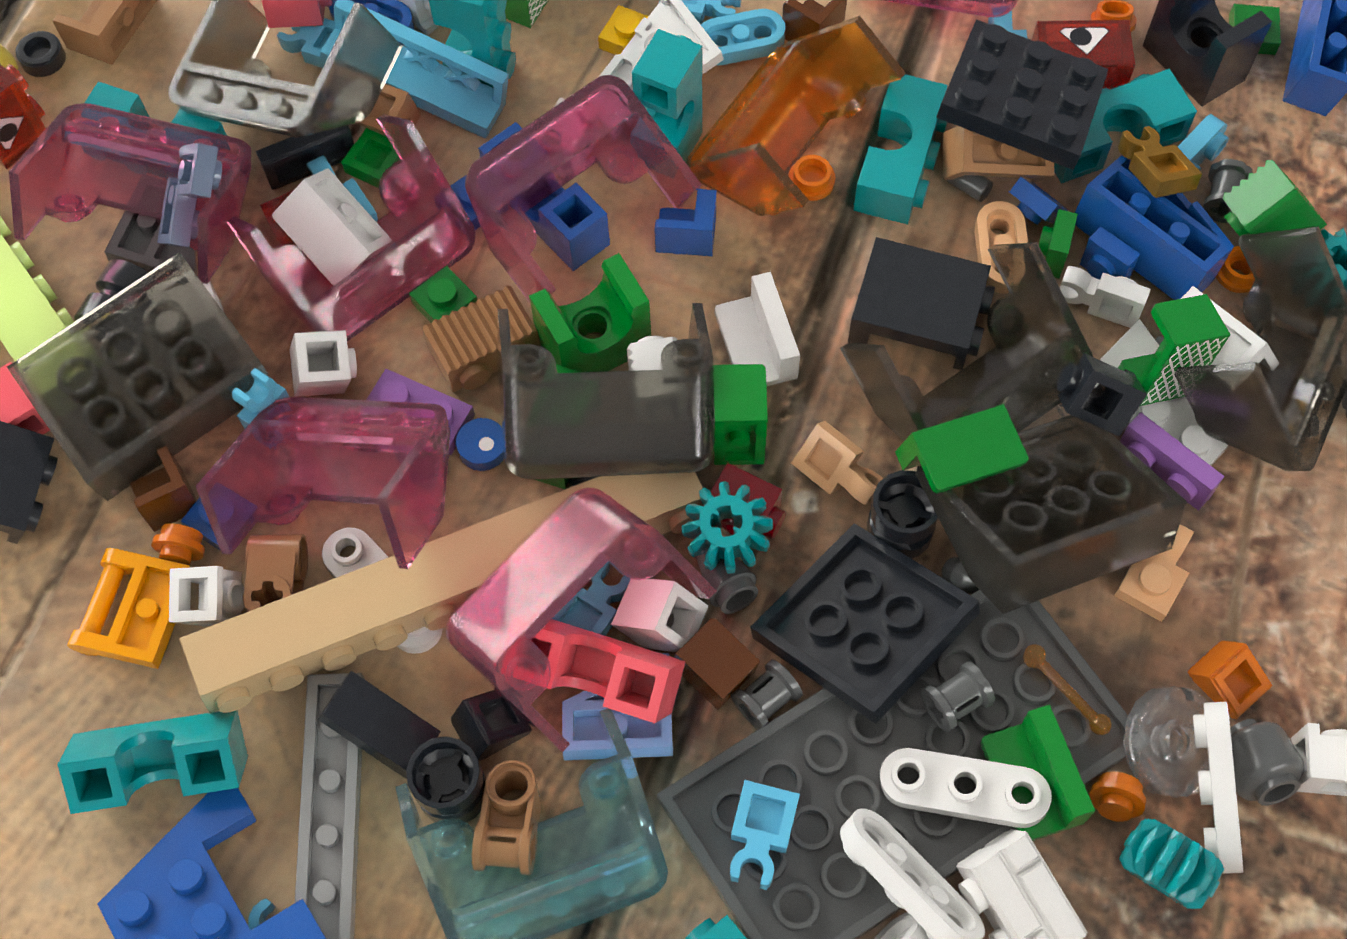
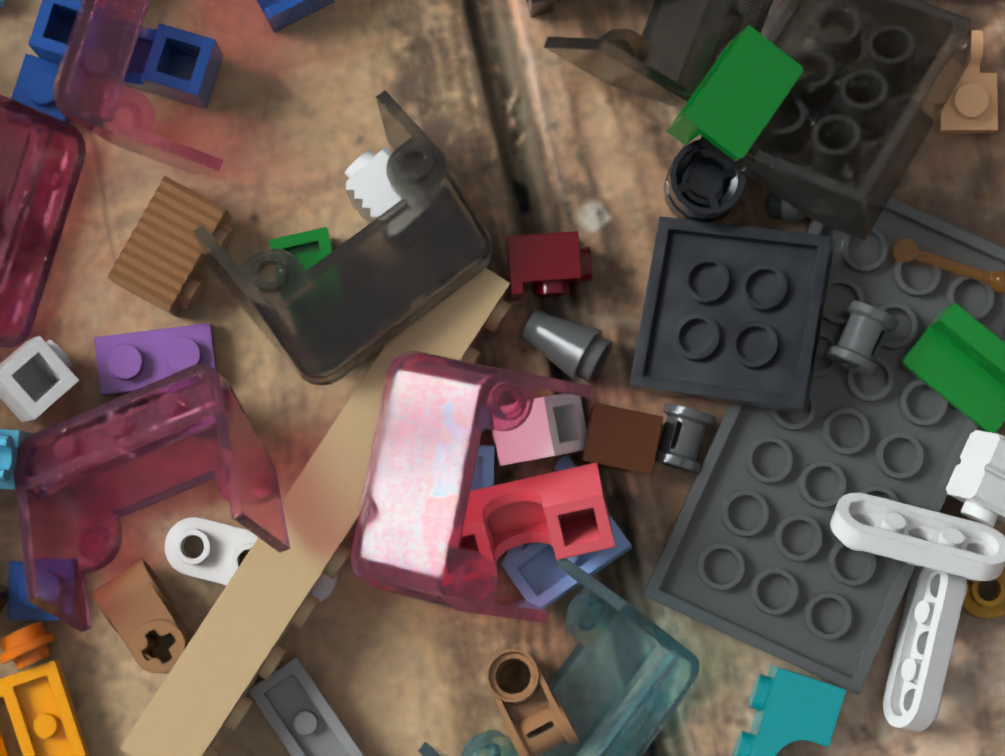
camera: 40 degrees left, 20 degrees up
(218, 595) = (108, 674): white brick -> none
(376, 723) = (349, 695): black tile -> none
(441, 295) = (96, 222): green plate -> none
(446, 779) = (449, 707): black wheel -> none
(481, 444) = (244, 355): blue tile -> none
(488, 724) = (439, 631): black slope -> none
(613, 309) = (287, 134): green piece -> none
(740, 414) = (490, 175): green panel -> none
(744, 516) = (560, 290): teal gear -> none
(759, 331) = (441, 70): white panel -> none
(764, 824) = (759, 565): medium azure plate -> none
(831, 463) = (600, 163): light nougat plate -> none
(987, 803) = (888, 419): white plate -> none

